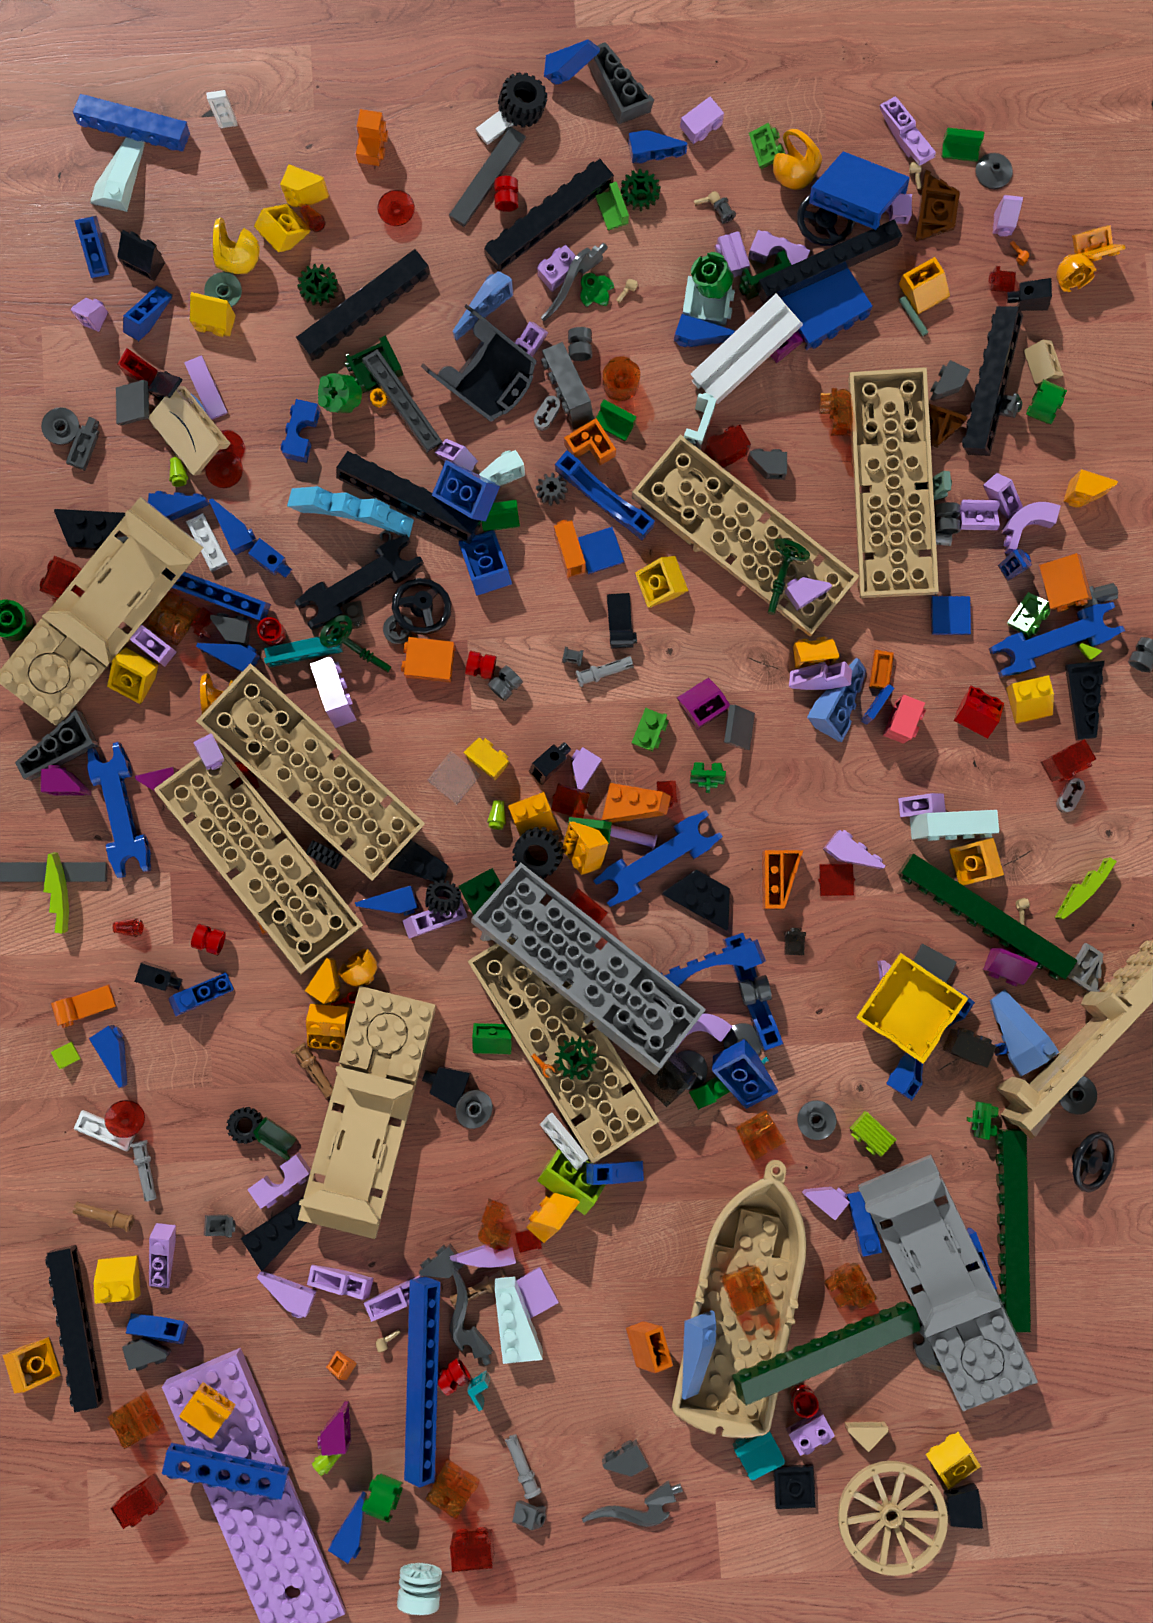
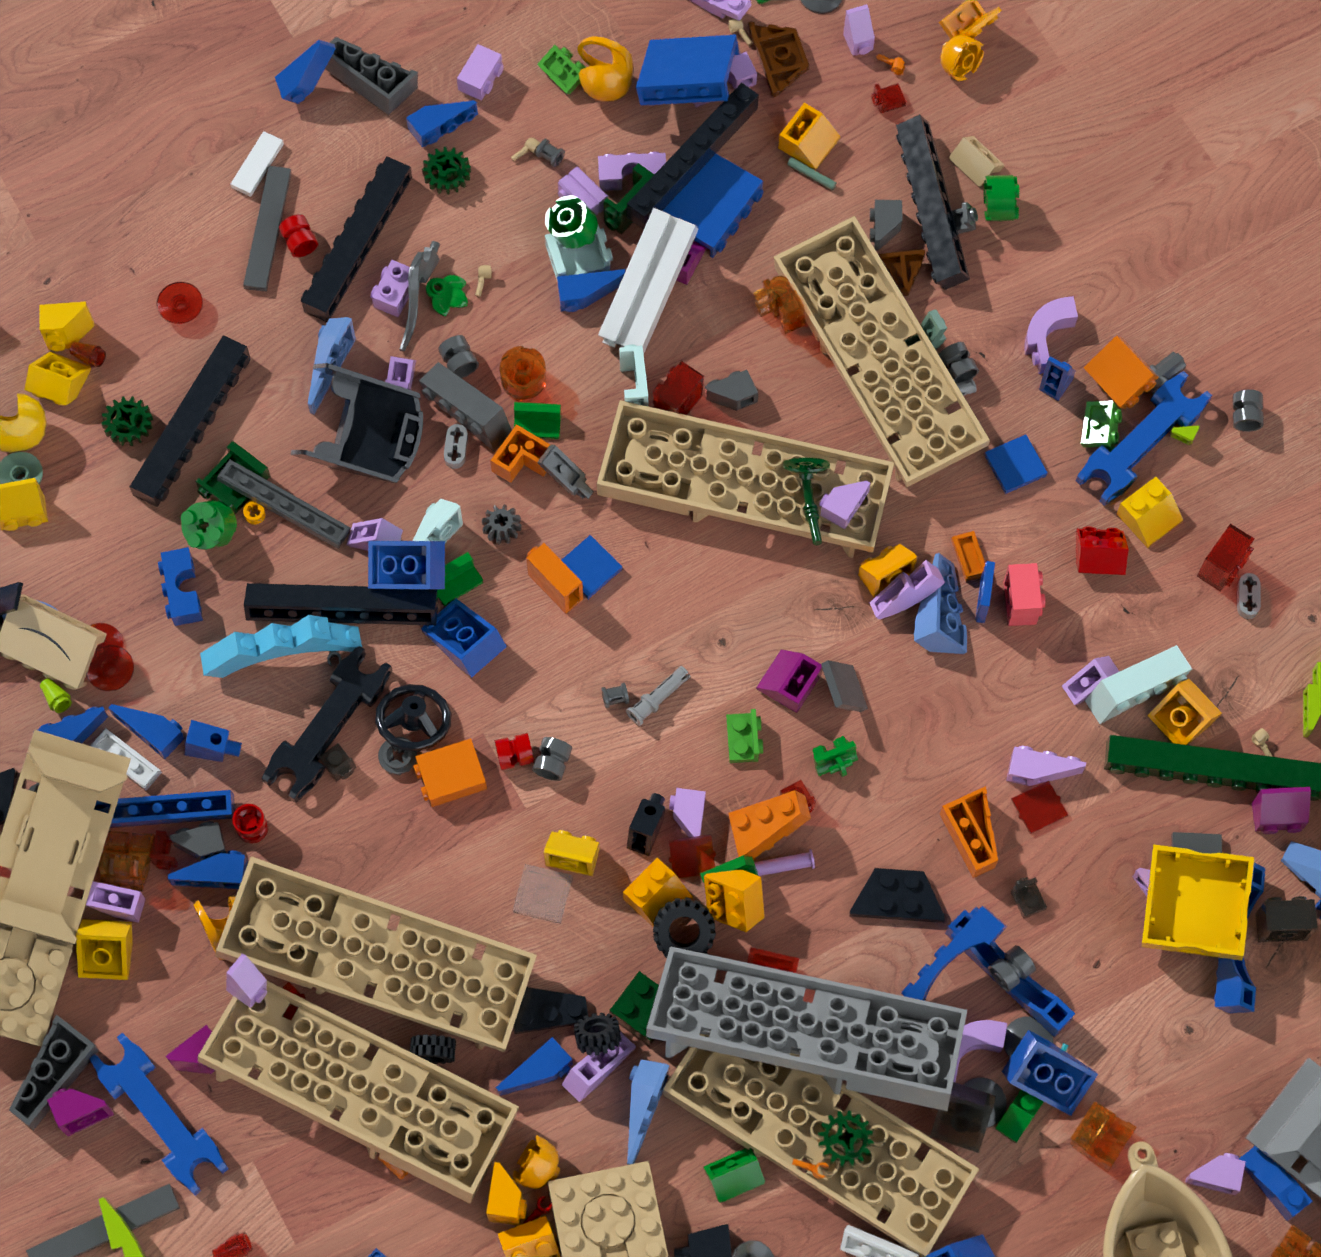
camera: 25 degrees left, 15 degrees down
(206, 387) = (46, 585): lavender slope -> none
(210, 940) = (338, 1215): red wheel -> none
(298, 651) = (297, 828): teal fence -> none
(333, 692) = (356, 858): wedge -> none
(342, 637) = (337, 791): dark green dish -> none
(371, 139) = (117, 239): orange brick -> none
(456, 955) = (646, 1090): none -> medium blue wedge
(497, 815) = (615, 914): lime cone -> none
(528, 89) = (274, 145): black tyre -> none
(581, 478) = (606, 515): blue arch -> none
(613, 207) = (425, 201): bright green panel -> none
(614, 471) = (565, 472): none -> dark grey hinge
(620, 621) = (650, 634): black door -> none
(661, 581) = (675, 568): yellow slope -> none
(686, 841) = (802, 911): blue piece -> none
(823, 223) = (665, 121): black piece -> none
(823, 1127) = (1167, 1079): dark grey dish -> none
(872, 1133) = (1230, 1073): lime brick -> none
(979, 515) = (991, 344): lavender bracket -> none
(1003, 489) = (1005, 313): lavender slope -> none
(1032, 295) = (928, 98): black torso -> none
(1084, 690) = (1204, 480): black wing -> none
(1087, 487) = (1092, 265): light orange slope -> none

